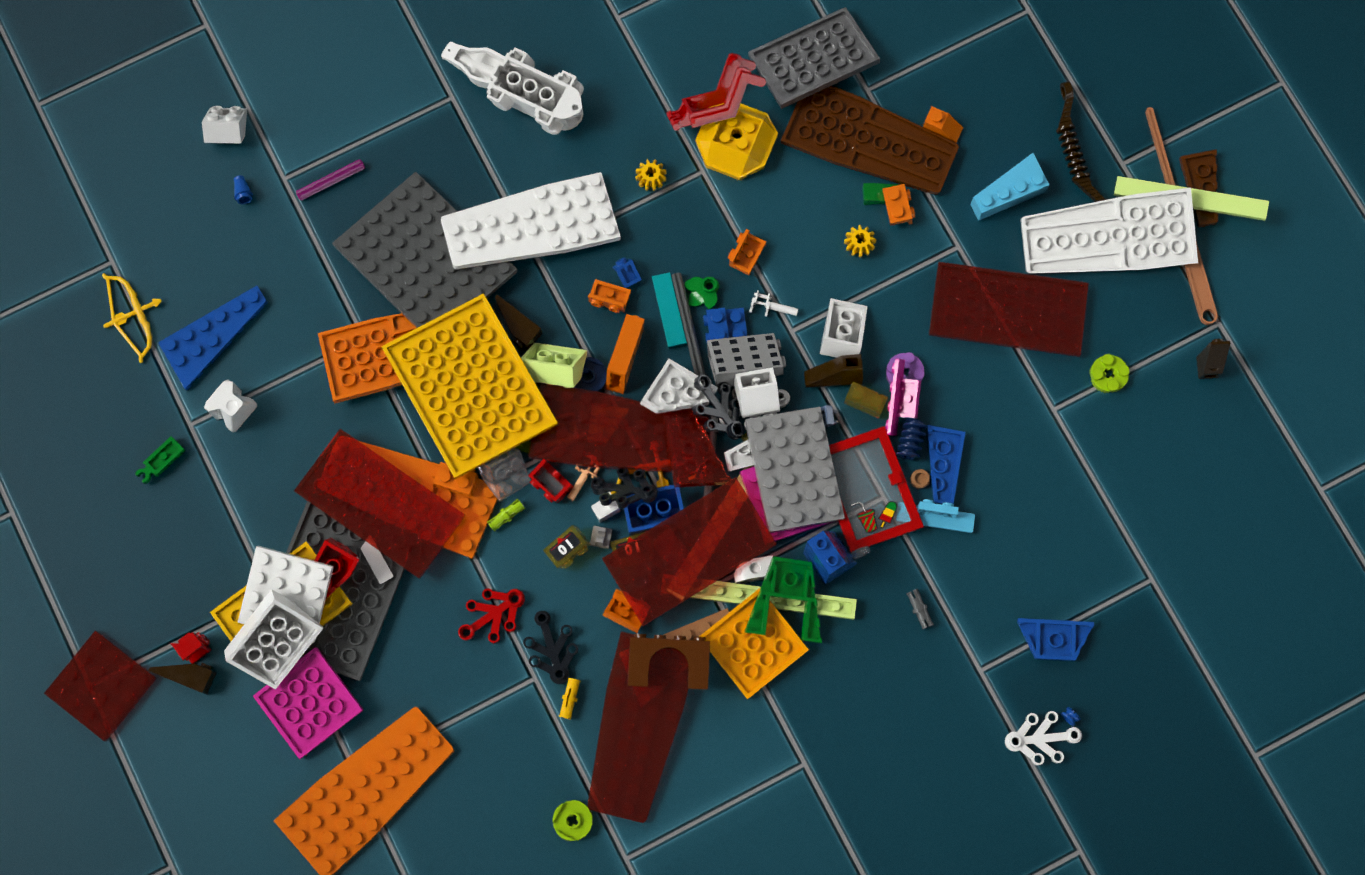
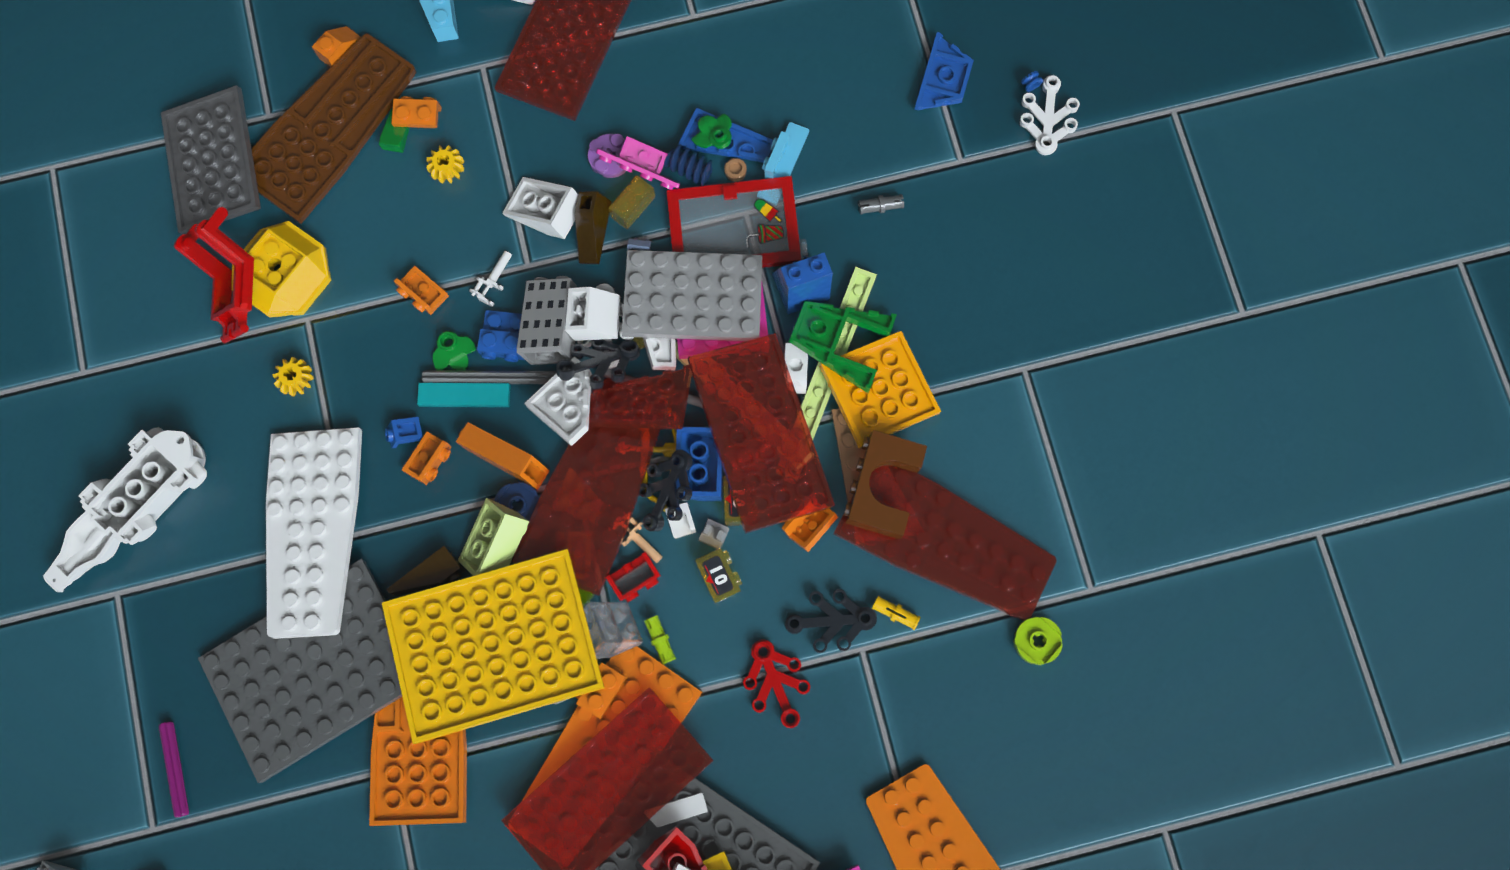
camera: 75 degrees left, 0 degrees up
(947, 449) = (711, 130): none -> green plate

